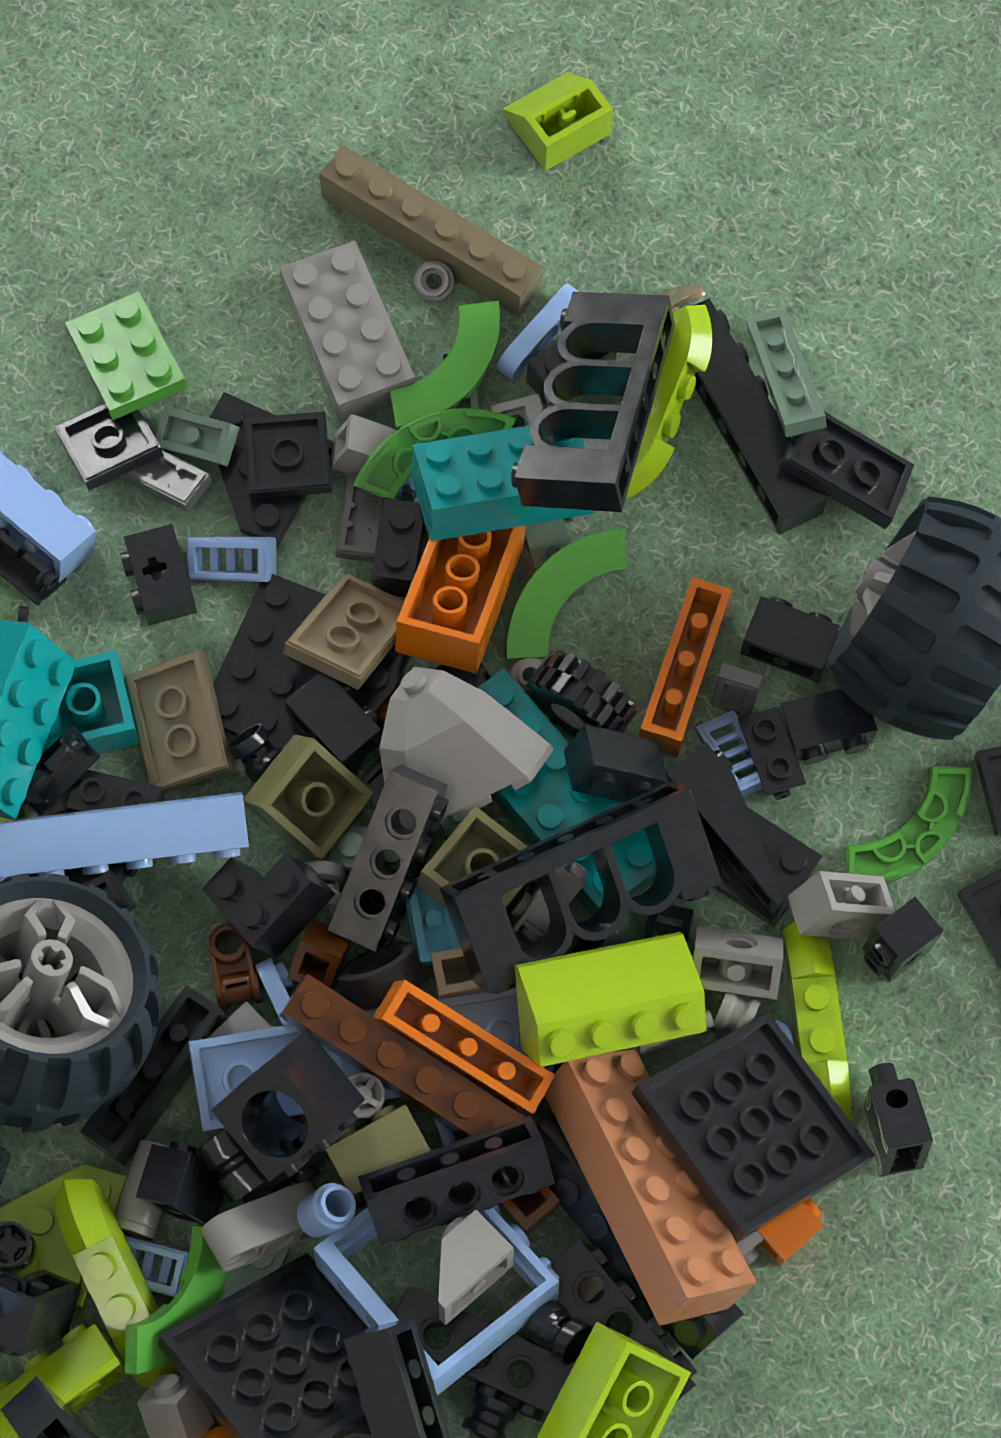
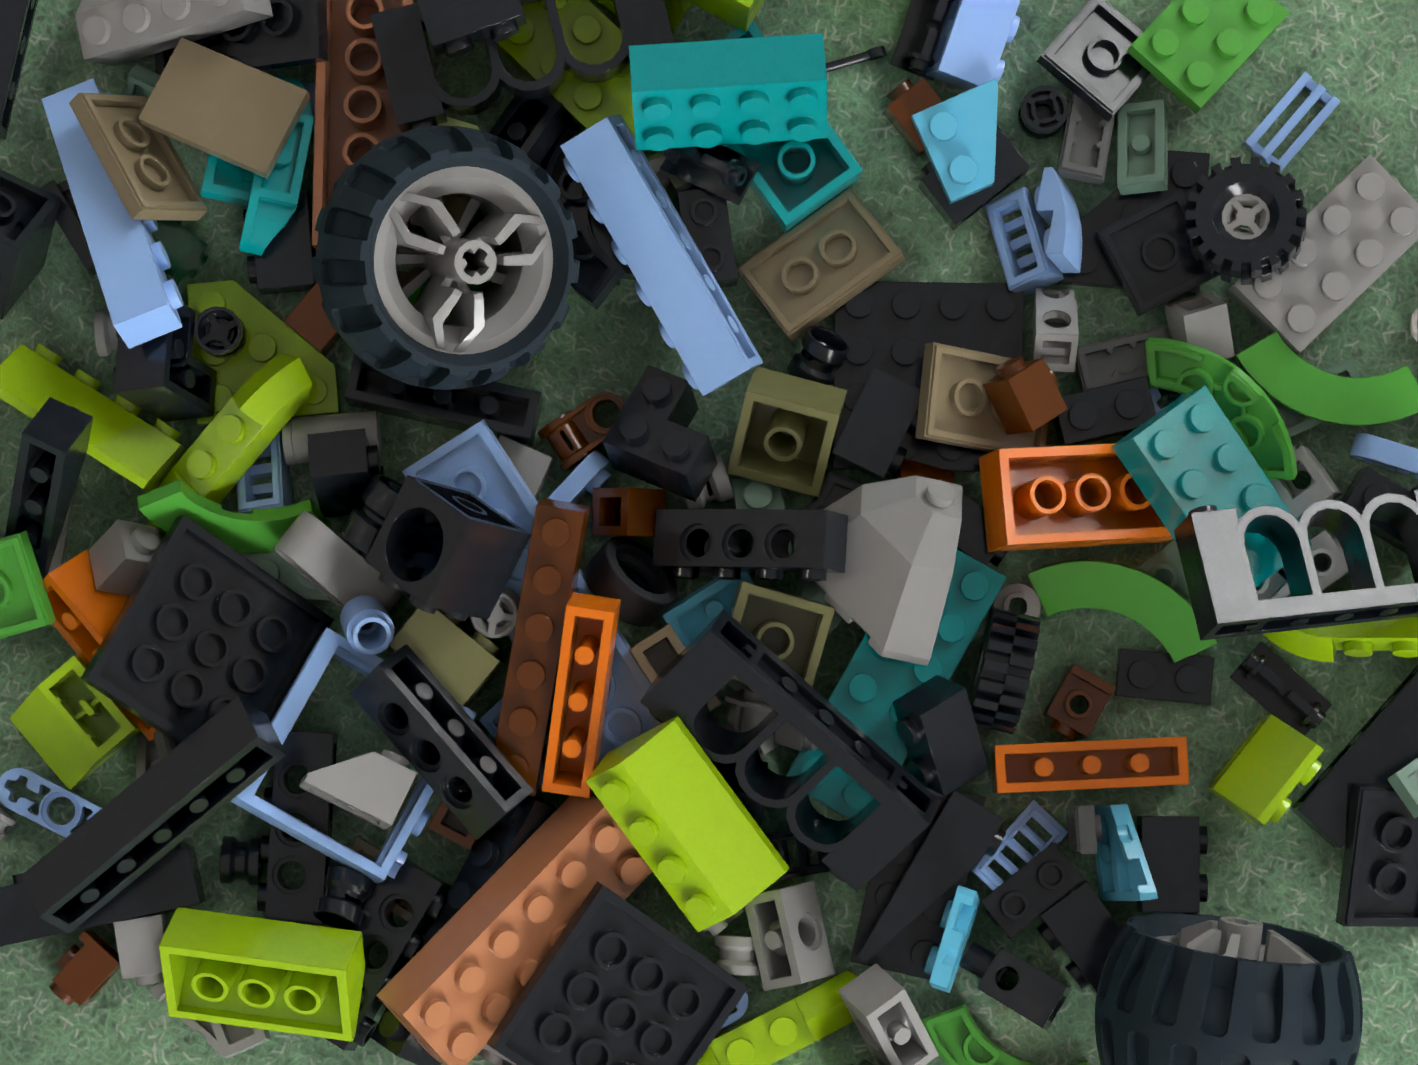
camera: 70 degrees right, 15 degrees up
(35, 1157) = (312, 323): none -> reddish brown brick
(90, 597) = (905, 102): none -> reddish brown brick
(127, 565) = (962, 140): none -> medium azure wing
(135, 511) = (1039, 120): none -> black wheel
(213, 297) = (1317, 92): none -> light blue tile
(218, 519) = (1059, 210): none -> light blue slope
(274, 361) = (1233, 200): none -> black wheel
(315, 556) = (1055, 328): none -> light grey leg
(359, 593) = (1024, 395): none -> reddish brown brick
(626, 673) = (1085, 684): none -> reddish brown brick
(634, 588) = (1159, 678): none -> black plate
(681, 503) = (1281, 690): none -> black hinge
(743, 531) = (1266, 771): none -> lime slope
(776, 817) = (958, 923): none -> medium azure wing
(782, 666) = (1120, 858): none -> medium azure wing
(857, 776) = (1035, 995): none -> black torso

